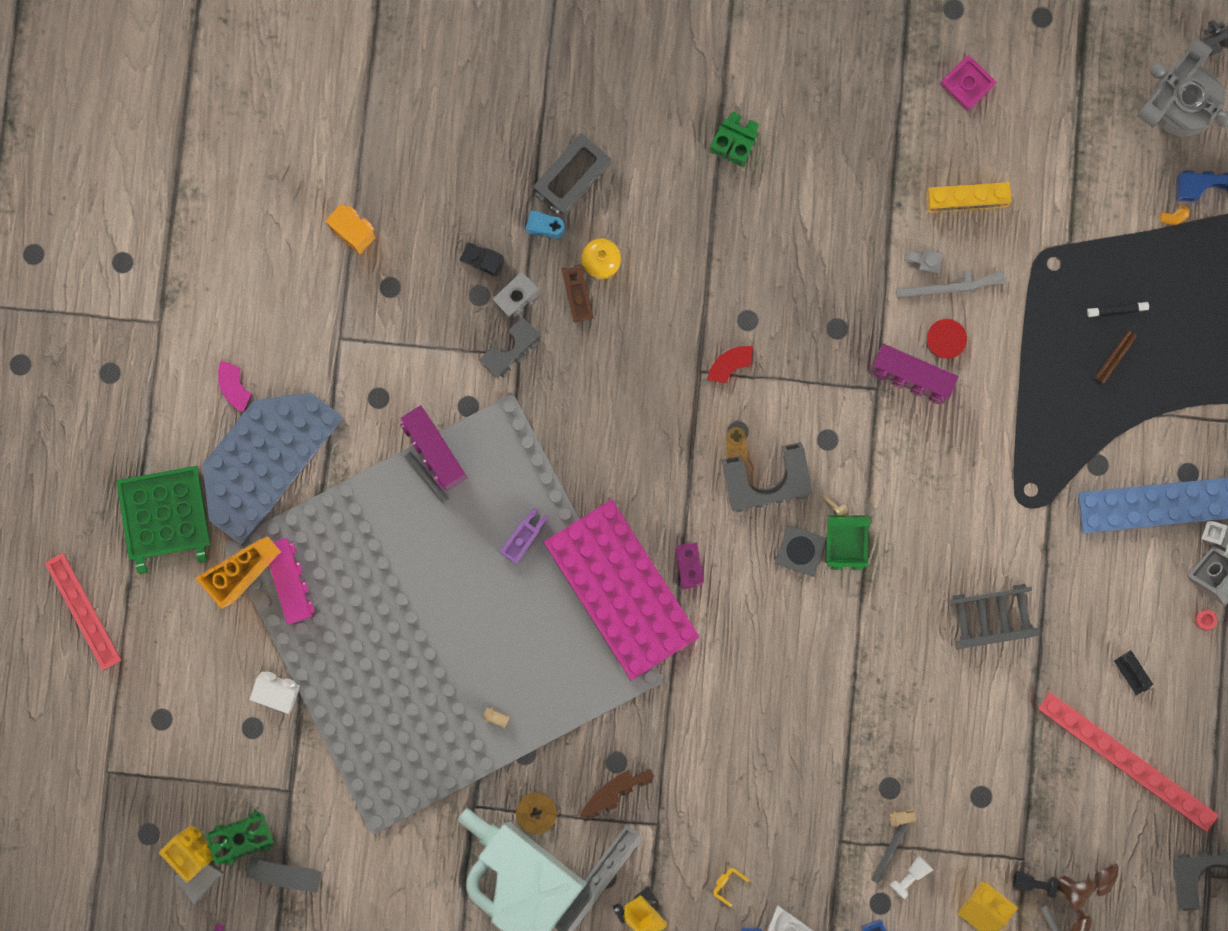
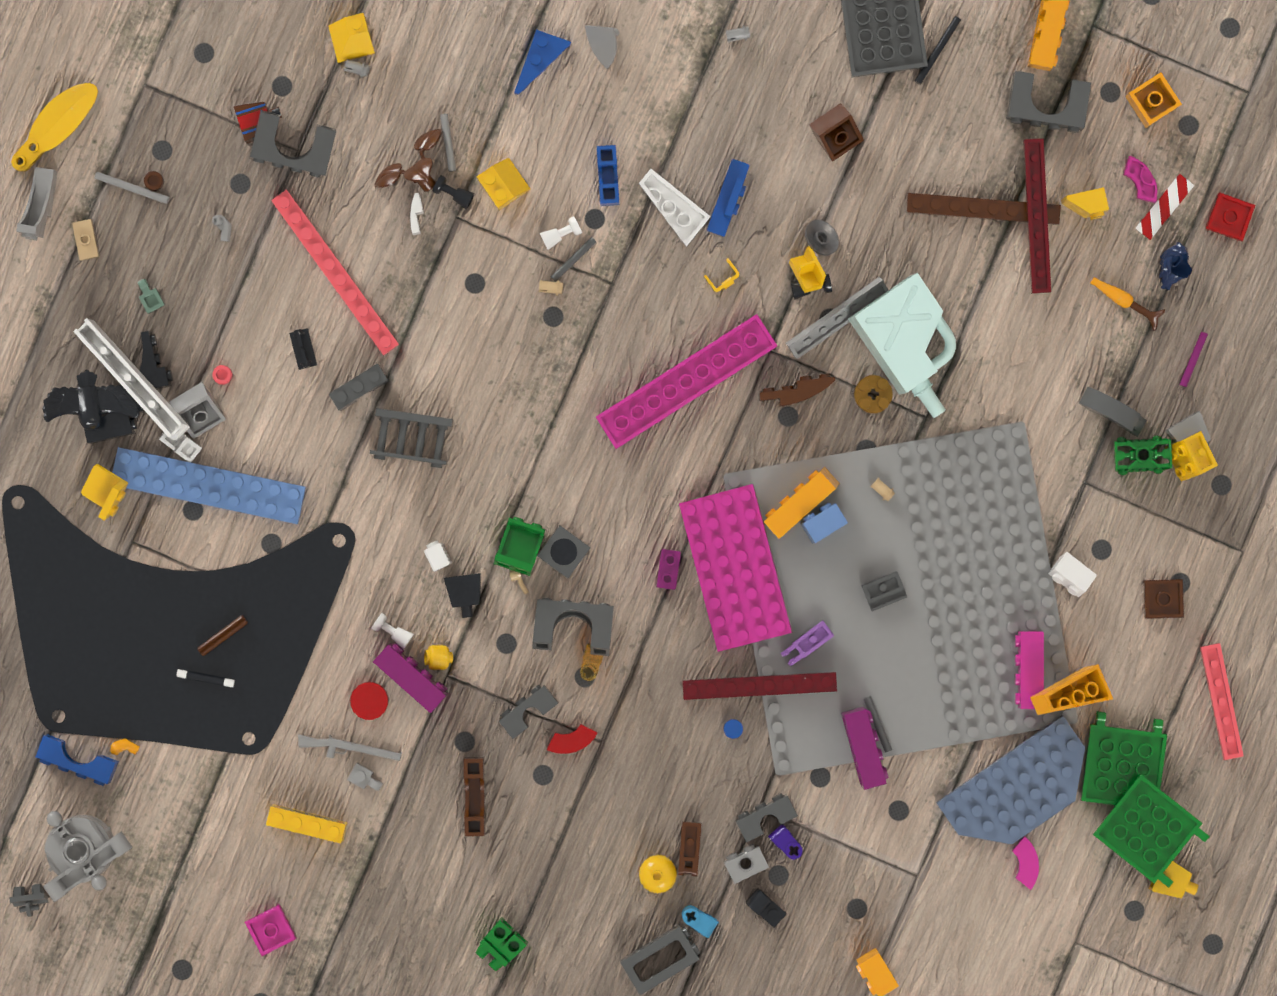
camera: 165 degrees left, 5 degrees up
(80, 415) = (1180, 884): none -> yellow torso
(119, 457) = (1148, 829): none -> green plate
(173, 697) = (1163, 599): none -> reddish brown tile
(462, 614) = (884, 591): none -> dark grey plate
(485, 332) = (784, 839): none -> dark purple piece
(546, 663) = (824, 522): none -> medium blue brick
(558, 478) = (760, 685): none -> dark red plate
(571, 426) = (733, 728): none -> blue tile
(574, 678) = (804, 500): none -> light orange wedge
(732, 765) = (686, 381): none -> dark pink plate
(775, 394) = (513, 720): none -> dark grey arch
(809, 277) = (474, 796): none -> reddish brown arch
(887, 477) = (464, 592): none -> black torso
(892, 403) = (438, 657): none -> yellow head
(927, 505) = (437, 555): none -> white brick
(938, 413) = (399, 635): none -> white piece
(1065, 651) = (358, 387): none -> dark grey arch
(1067, 854) = (416, 209): none -> white slope

